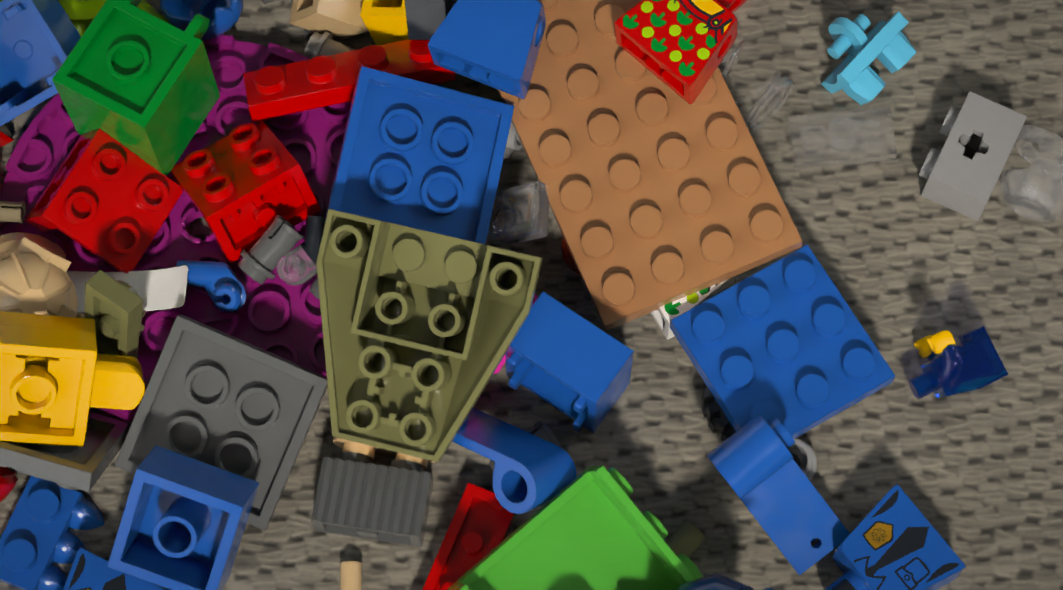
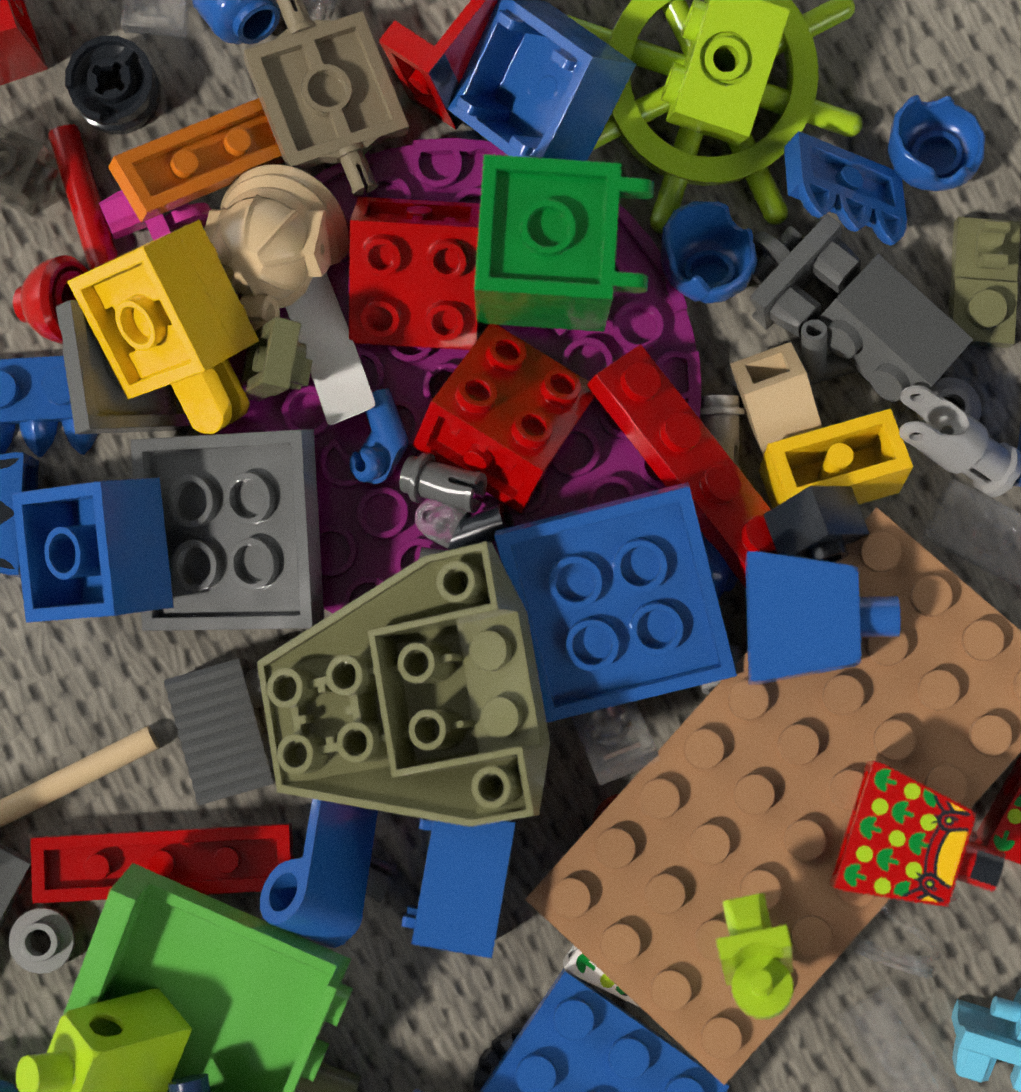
camera: 65 degrees right, 15 degrees up
(712, 159) = (756, 958): none -> lime hips

